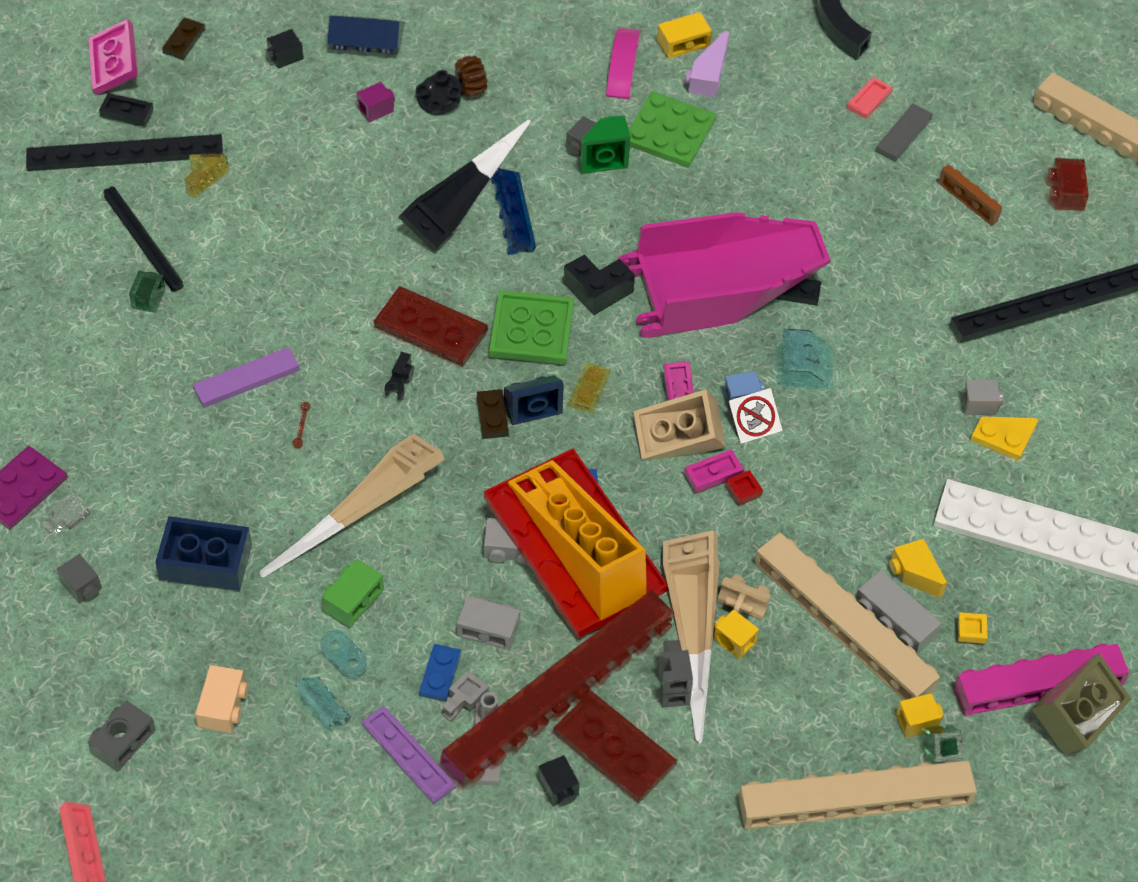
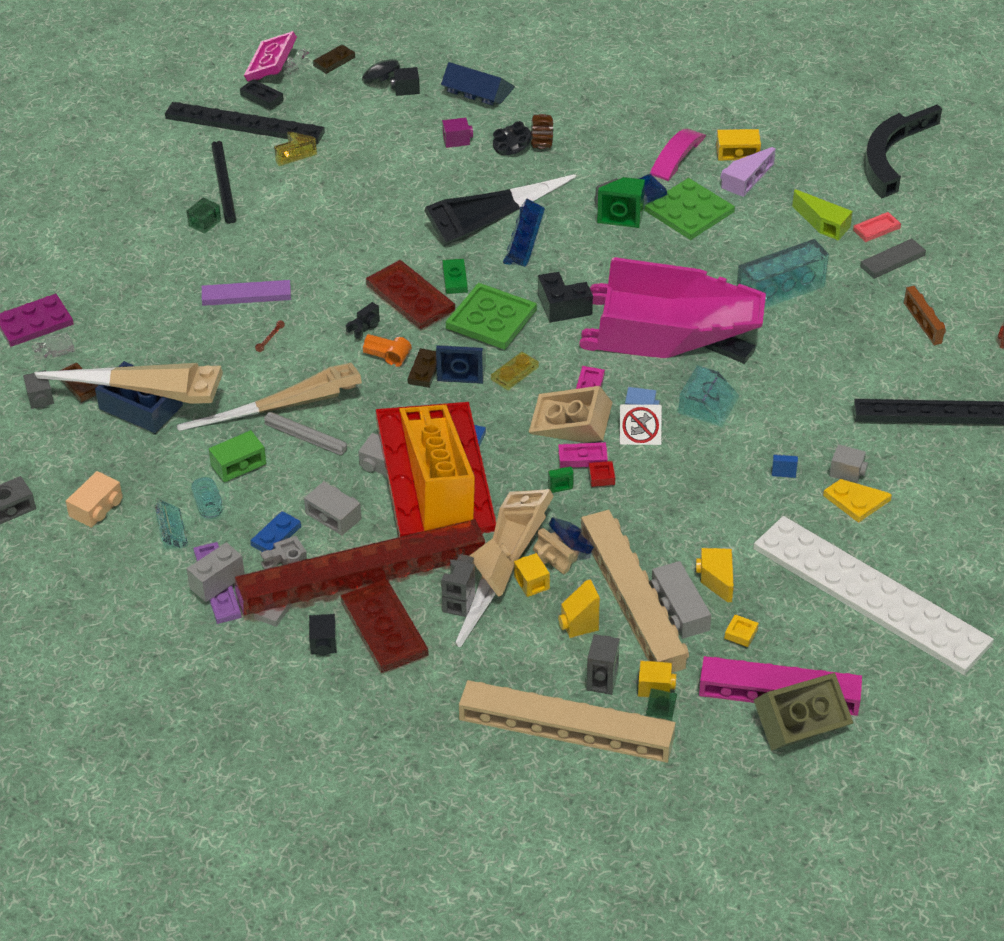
camera: 25 degrees right, 10 degrees down
(119, 553) = (81, 390): none -> reddish brown plate
(245, 524) = (175, 381): none -> tan plate
(248, 42) = (380, 70): none -> black dish
(407, 537) = (305, 433): none -> light grey axle
(410, 747) = (215, 572): none -> light grey brick
(450, 404) = (392, 351): none -> orange piece
(465, 287) = (455, 276): none -> green plate
(615, 108) = (653, 188): none -> clear blue plate
(698, 638) = (494, 565): none -> tan slope
(707, 509) = (560, 479): none -> green tile
(753, 573) = (571, 535): none -> clear blue plate
(811, 662) = (580, 611): none -> yellow slope
(814, 101) = (822, 215): none -> lime slope
(817, 185) = (786, 272): none -> clear light blue brick
(866, 718) = (603, 664): none -> dark grey brick
(921, 419) = (784, 466): none -> blue tile

